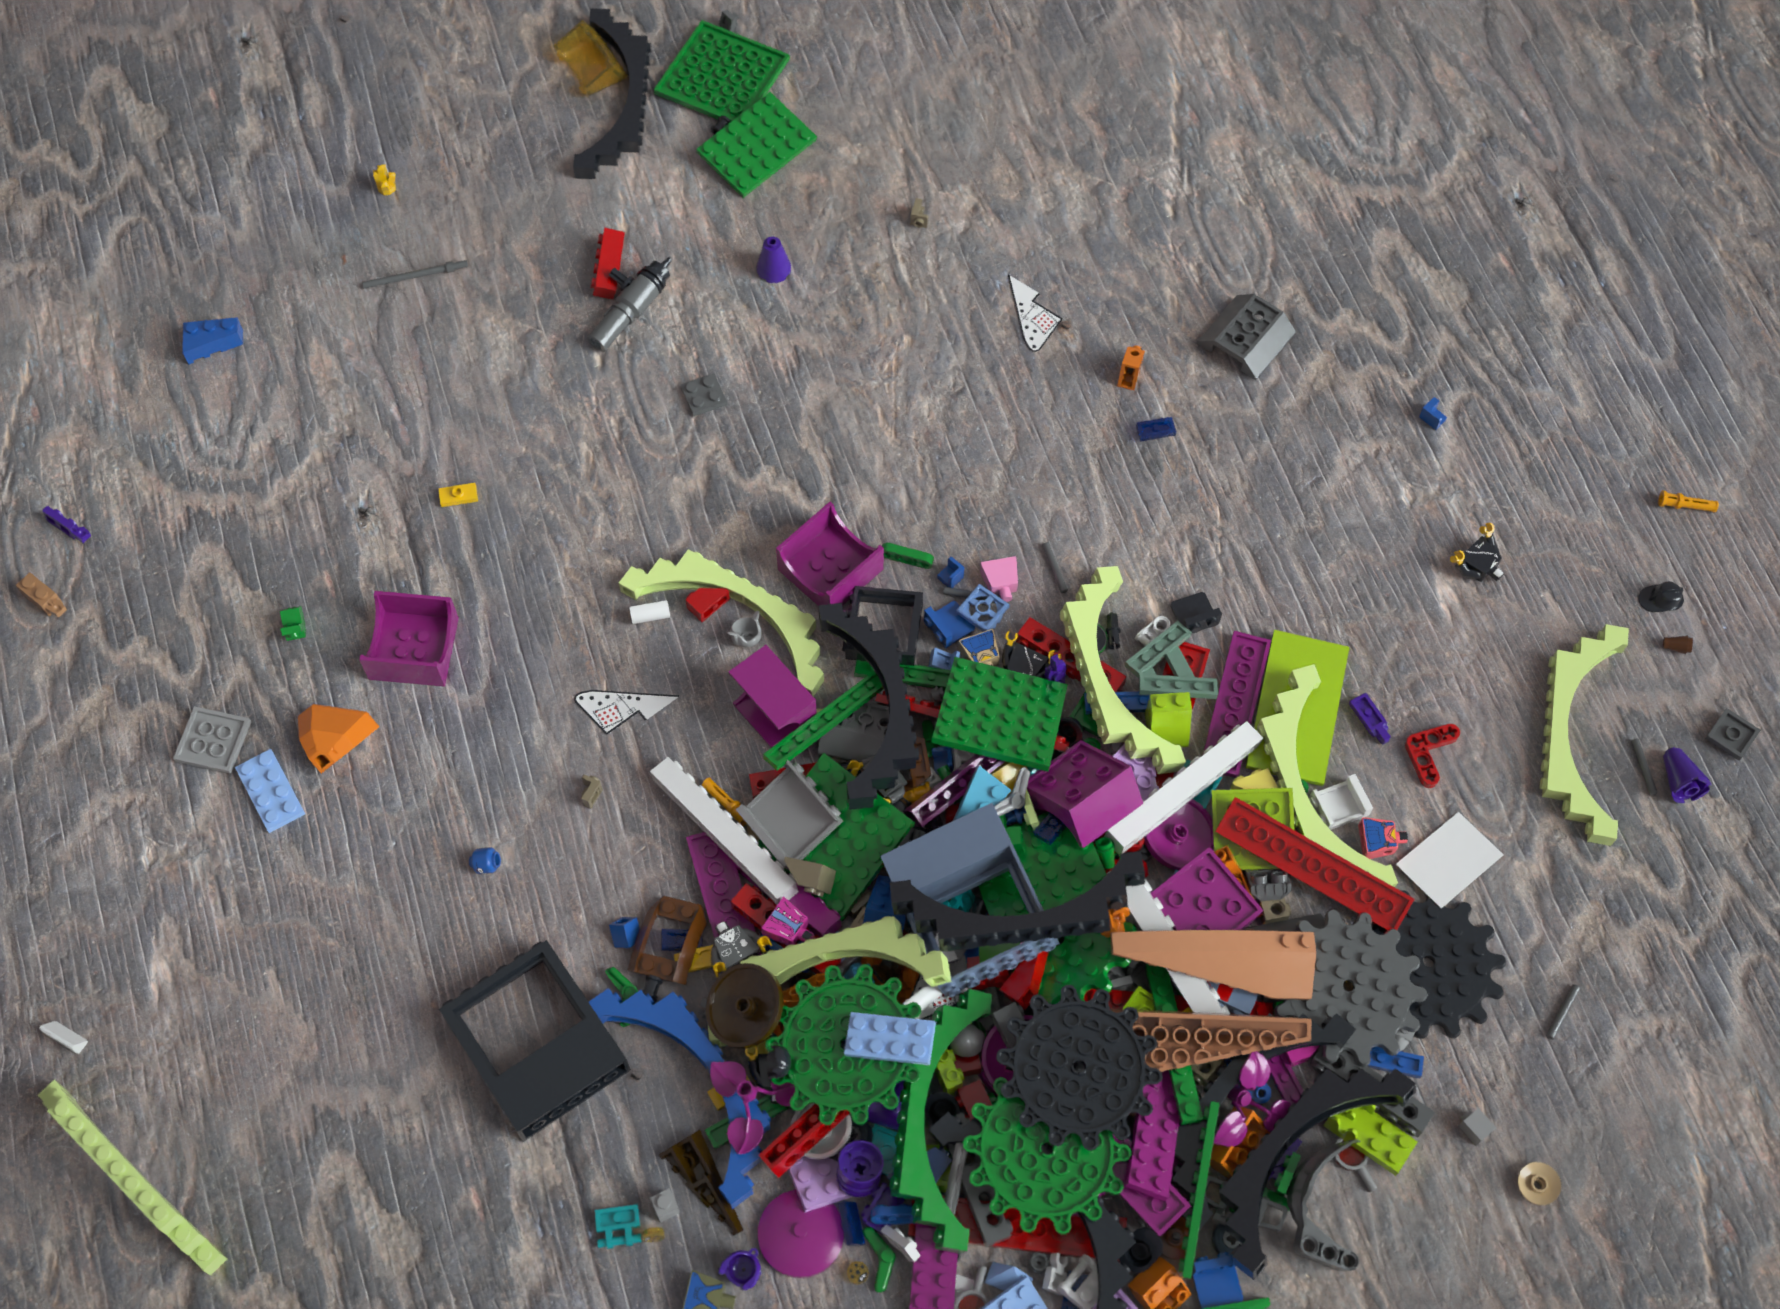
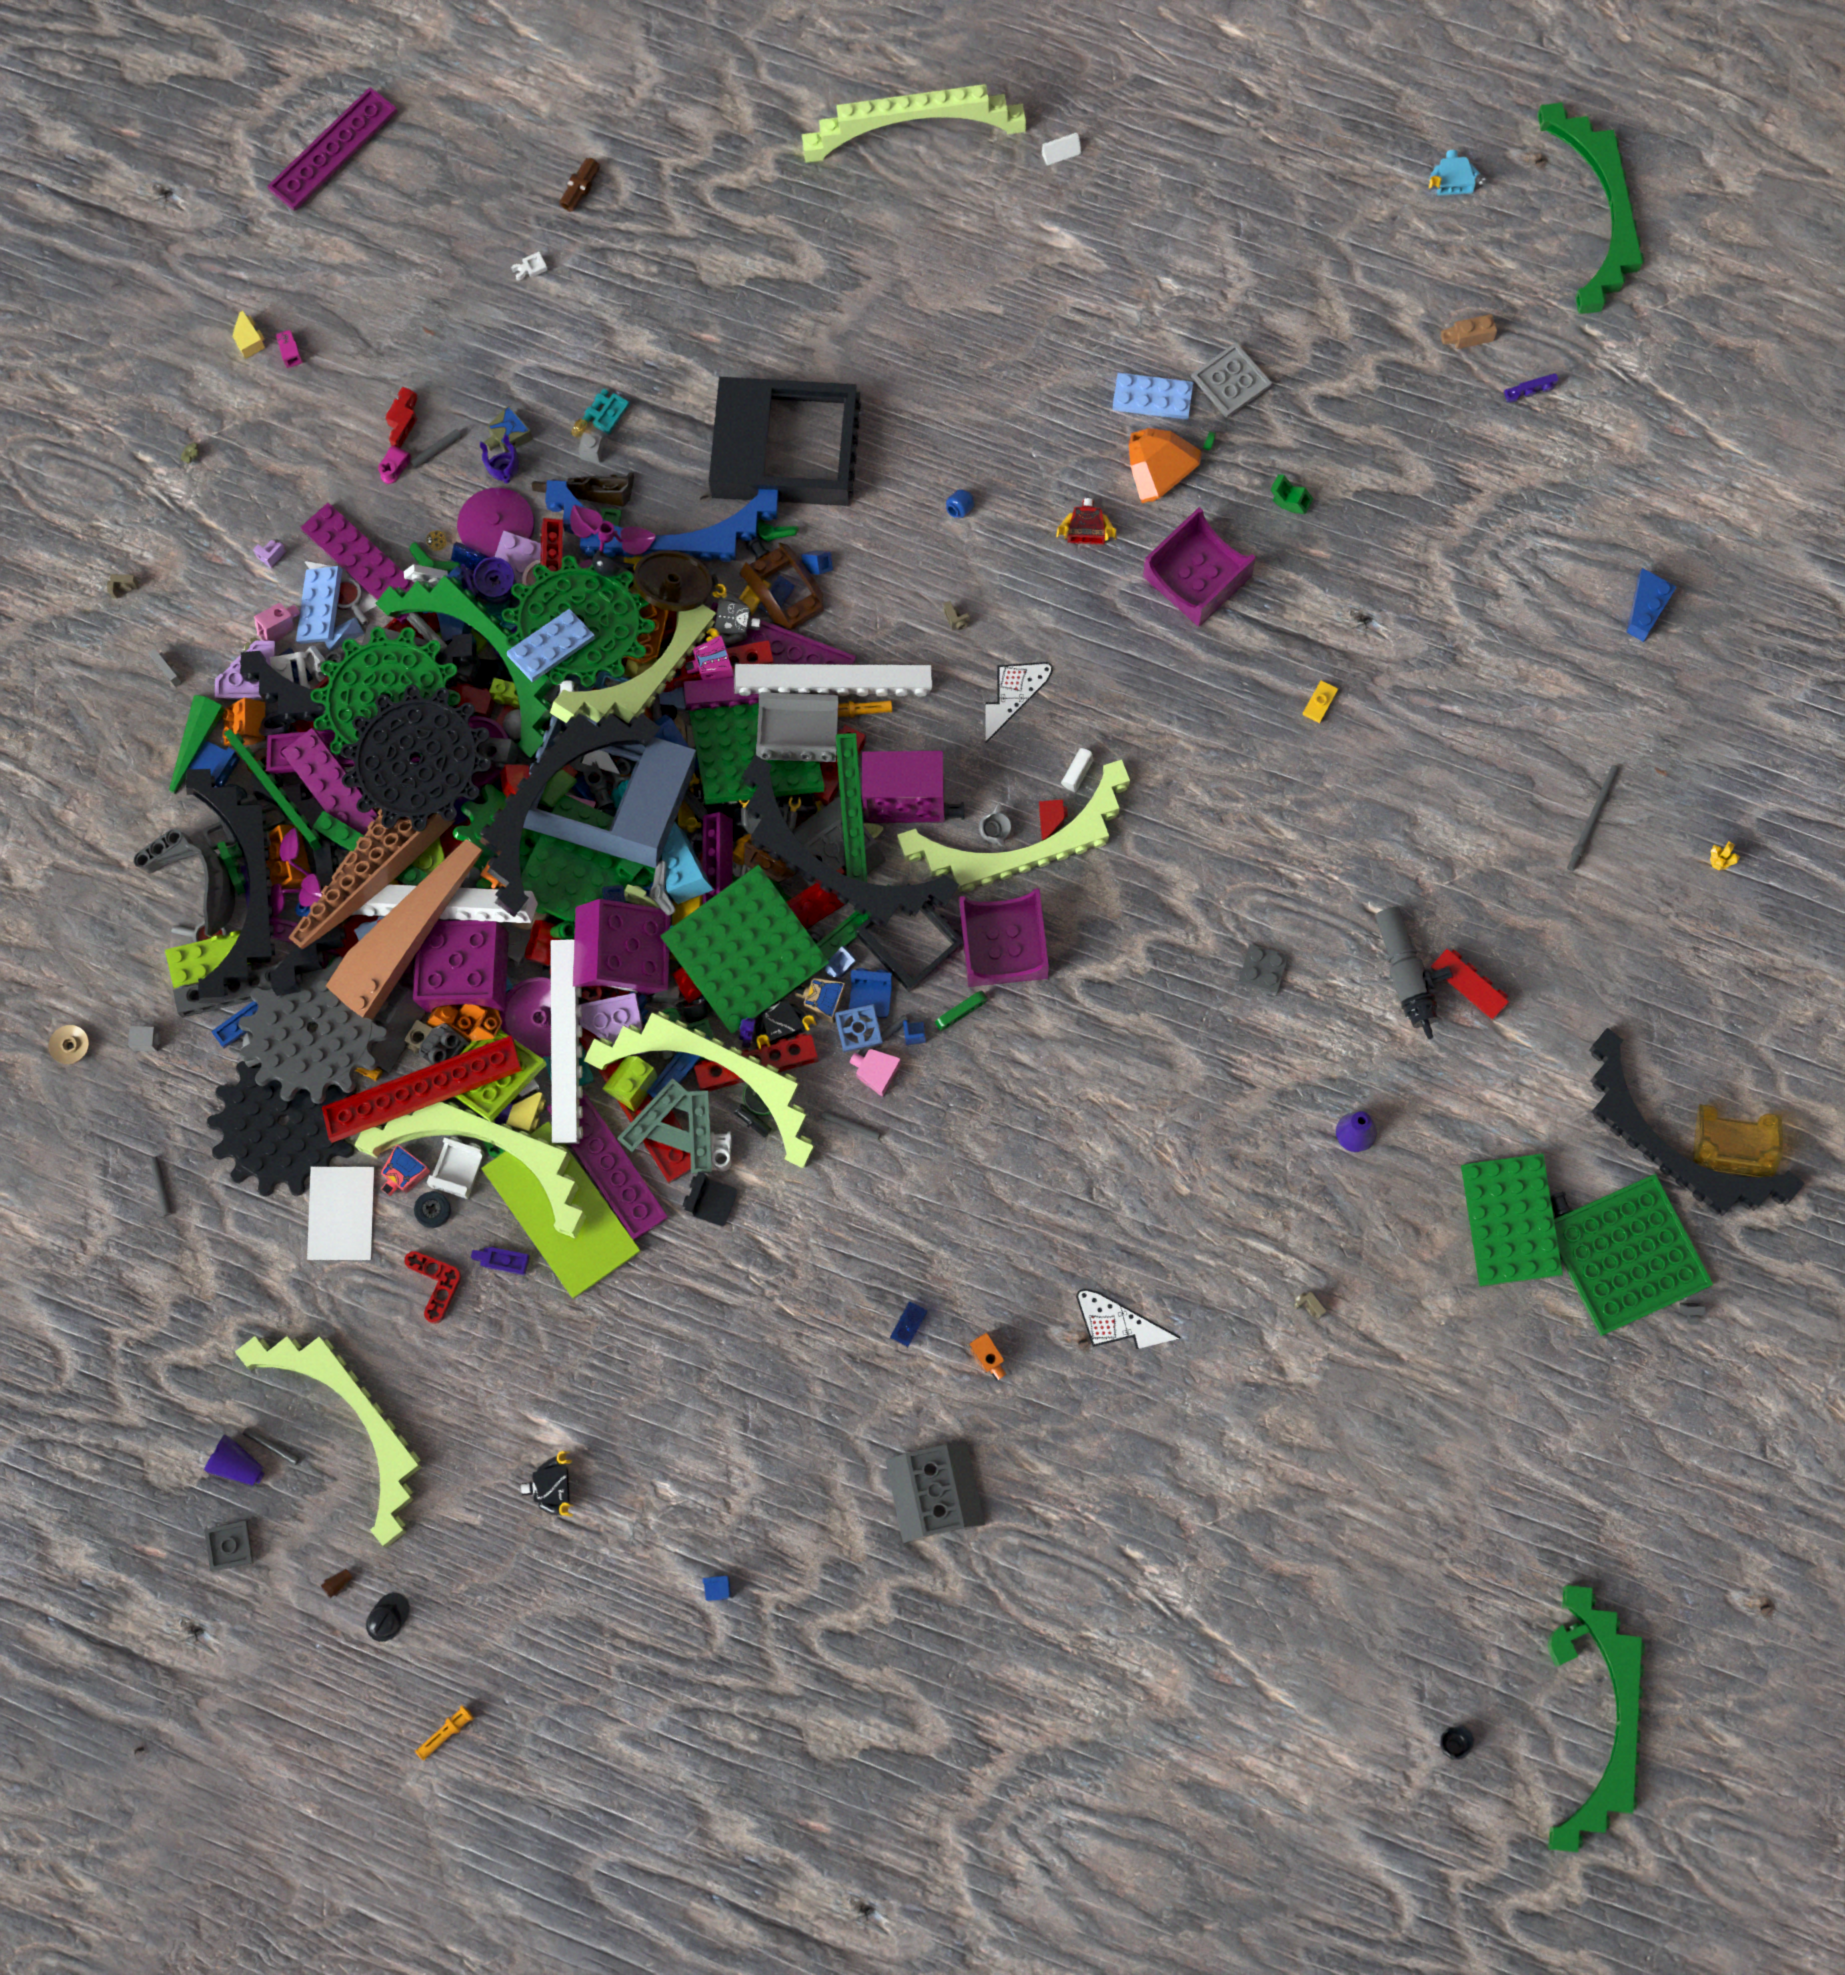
camera: 135 degrees right, 10 degrees up
(283, 717) = (1209, 440): none -> green tile
(431, 750) = (1087, 525): none -> torso
(812, 876) = (734, 702): dark tan slope -> none
(1388, 788) = (430, 1199): none -> black bush

